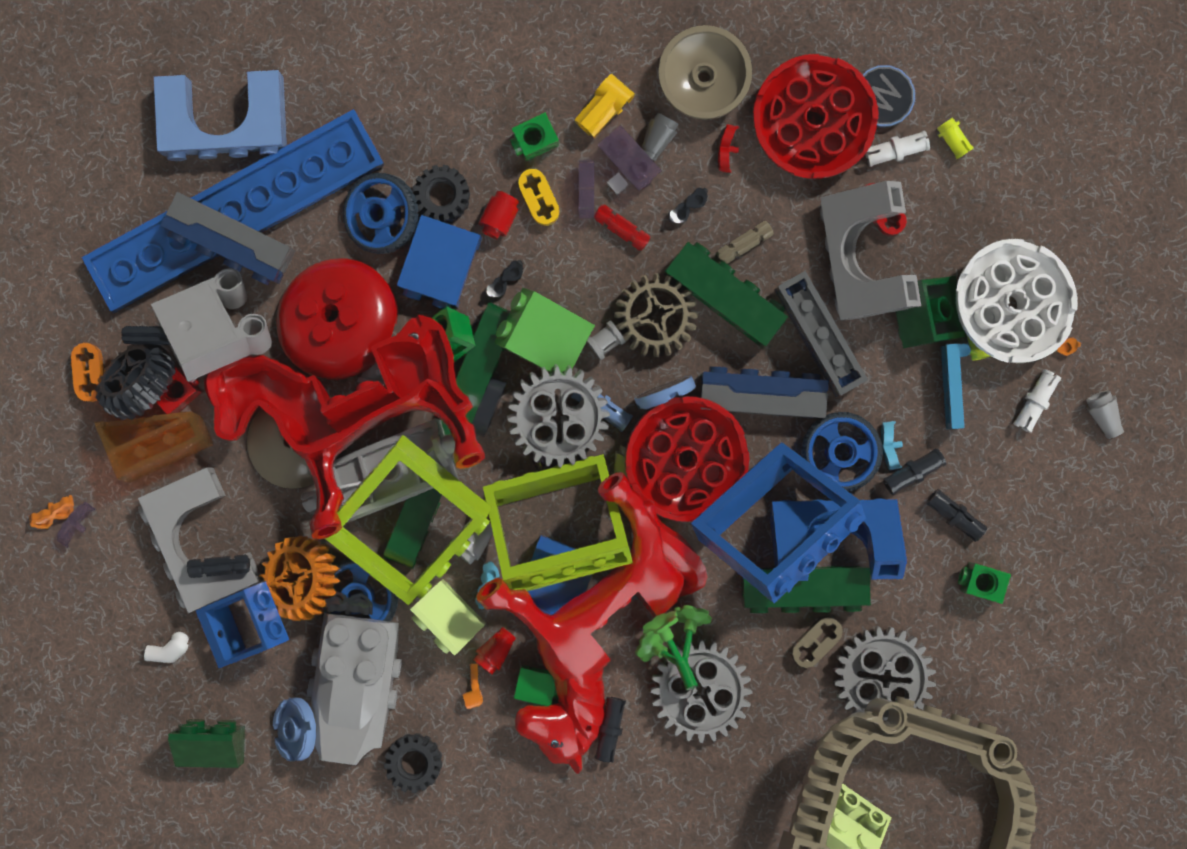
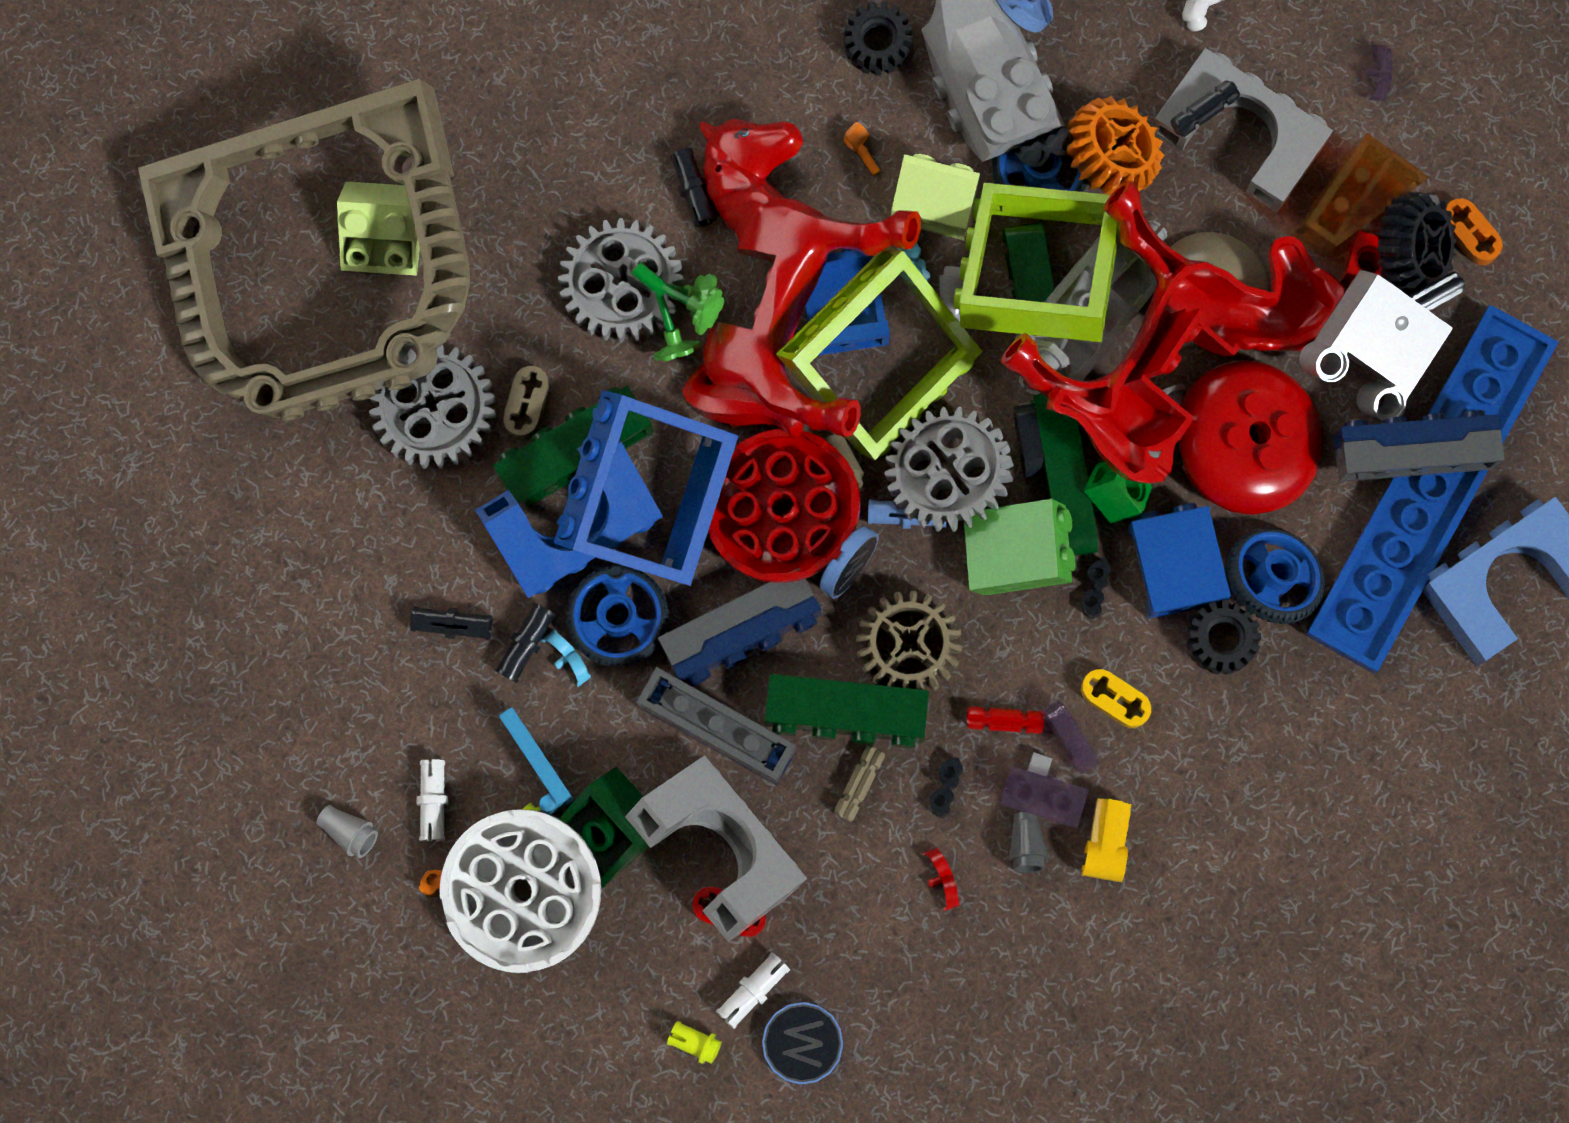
camera: 150 degrees right, 10 degrees down
(59, 511) = (1407, 74): orange piece -> none
(230, 646) = (1139, 41): blue window -> none
(494, 651) = (863, 194): red cone -> none
(498, 215) = (1147, 651): red brick -> none
(535, 686) = (800, 181): green brick -> none
(537, 124) = (1150, 771): green brick -> none
(605, 340) = (947, 584): light grey bush -> none
(707, 51) = (1049, 936): dark tan dish -> none
(819, 86) = (872, 924): red brick -> none
(996, 587) = (364, 563): green brick -> none

